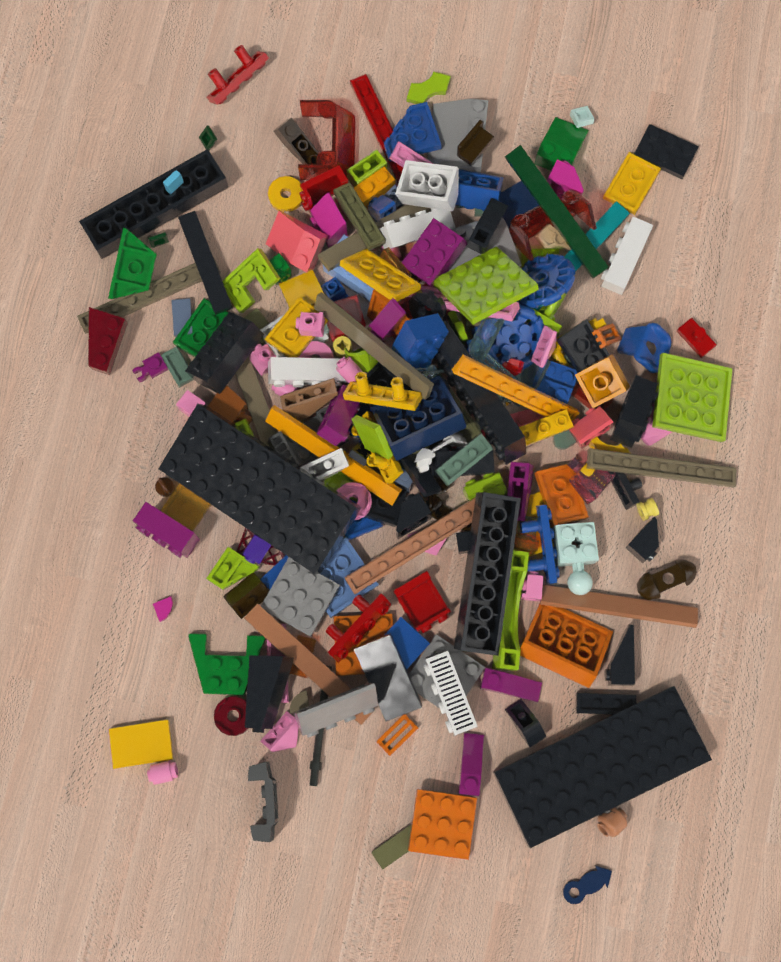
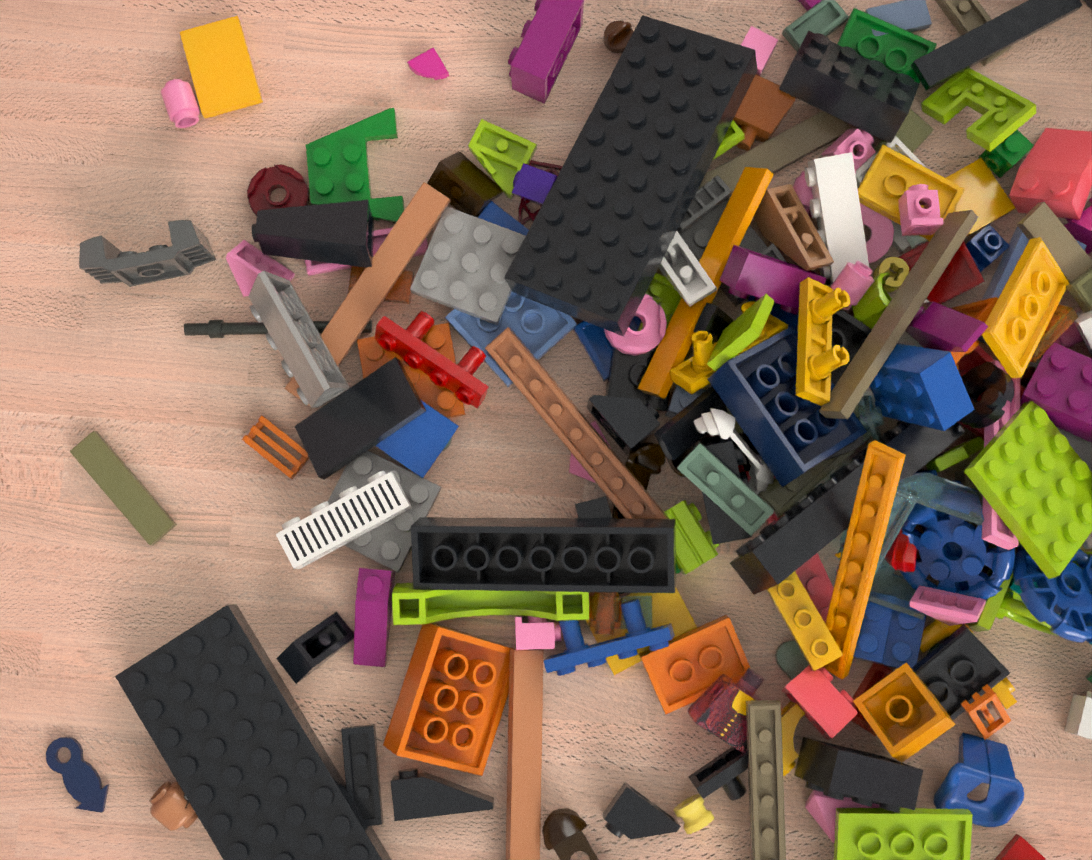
camera: 80 degrees right, 5 degrees up
(186, 507) = (585, 71): clear yellow tile -> none
(299, 702) = (309, 291): dark tan tile -> none
(422, 603) = (487, 459): red panel -> none
(442, 824) = (145, 534): orange plate -> none
(471, 764) = (239, 568): magenta slope -> none
(520, 485) = (699, 593): magenta slope -> none
(568, 555) = (554, 710): light aqua brick -> none

